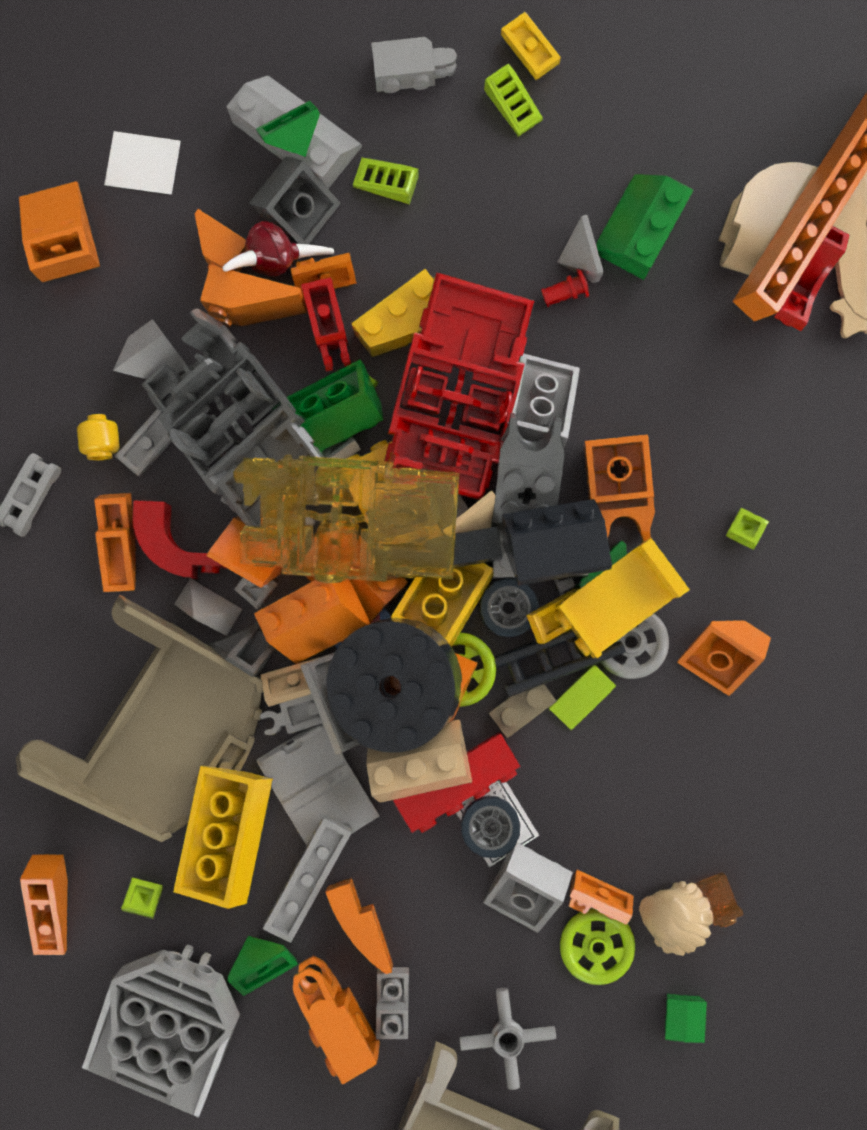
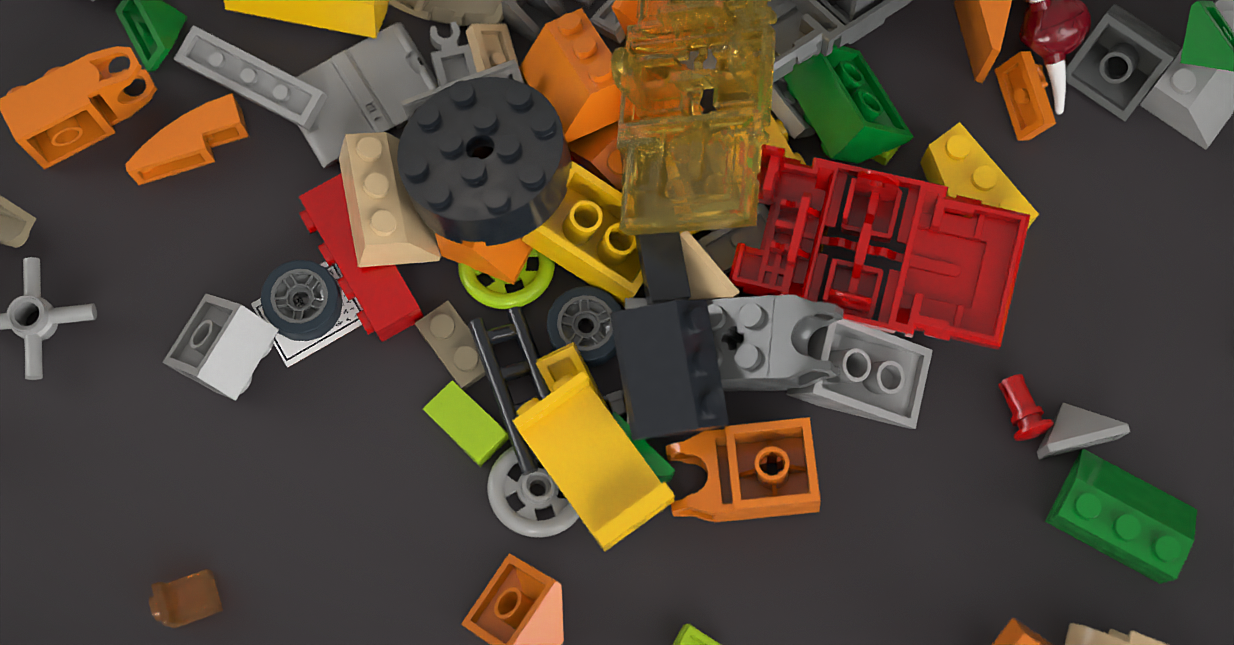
camera: 90 degrees right, 10 degrees down
(326, 320) = (962, 96): red hinge -> none
(392, 1004) = (88, 182): light grey slope -> none
(393, 192) = (1153, 204): lime slope -> none
(572, 954) = (164, 459): lime plate -> none
(594, 893) = (201, 441): orange hinge -> none
(677, 918) = (166, 538): tan hair -> none
(685, 1018) = (34, 547): green piece -> none

